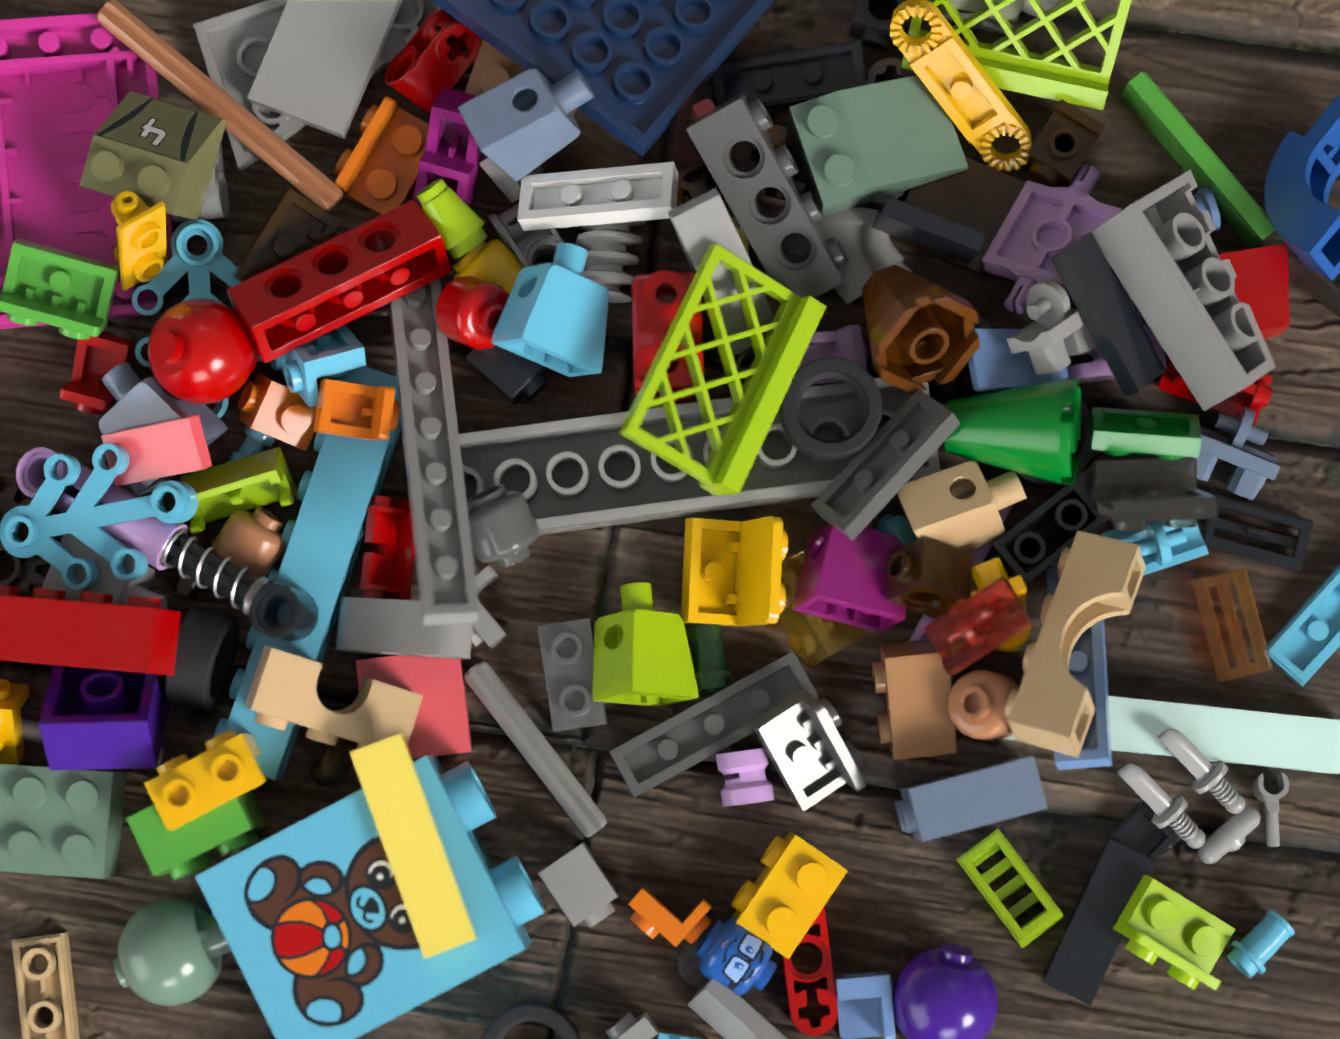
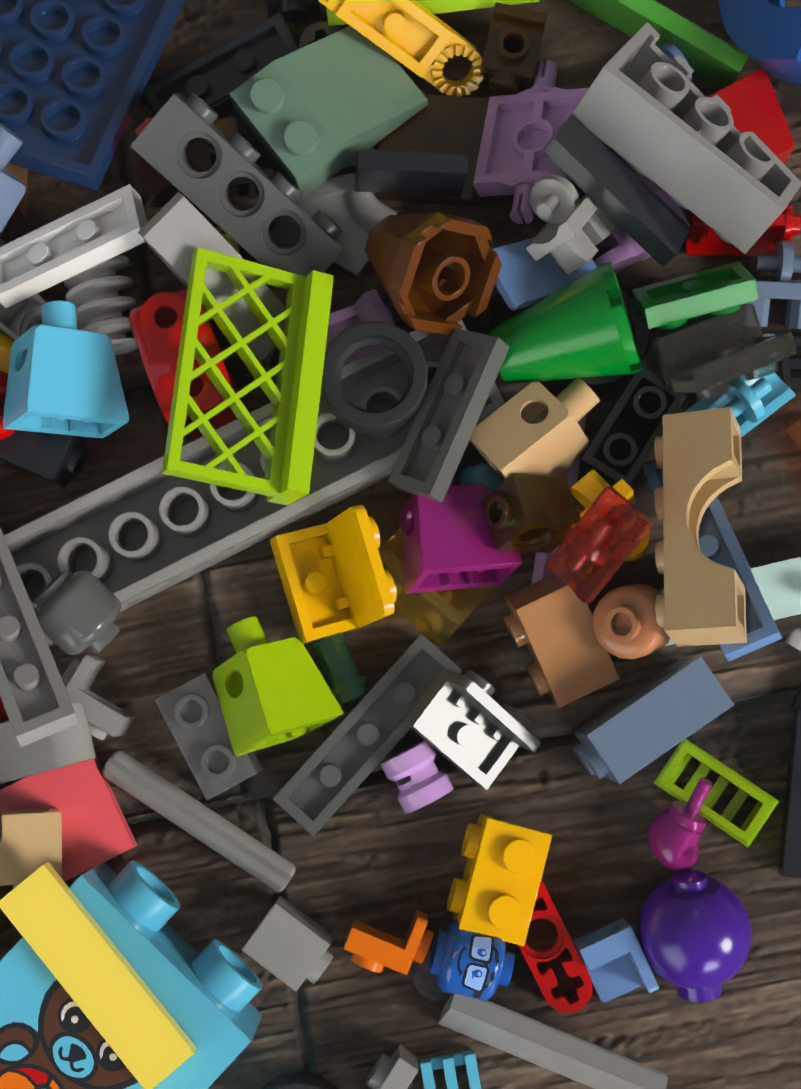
camera: 25 degrees left, 0 degrees up
(961, 907) = (677, 829): none -> magenta piece

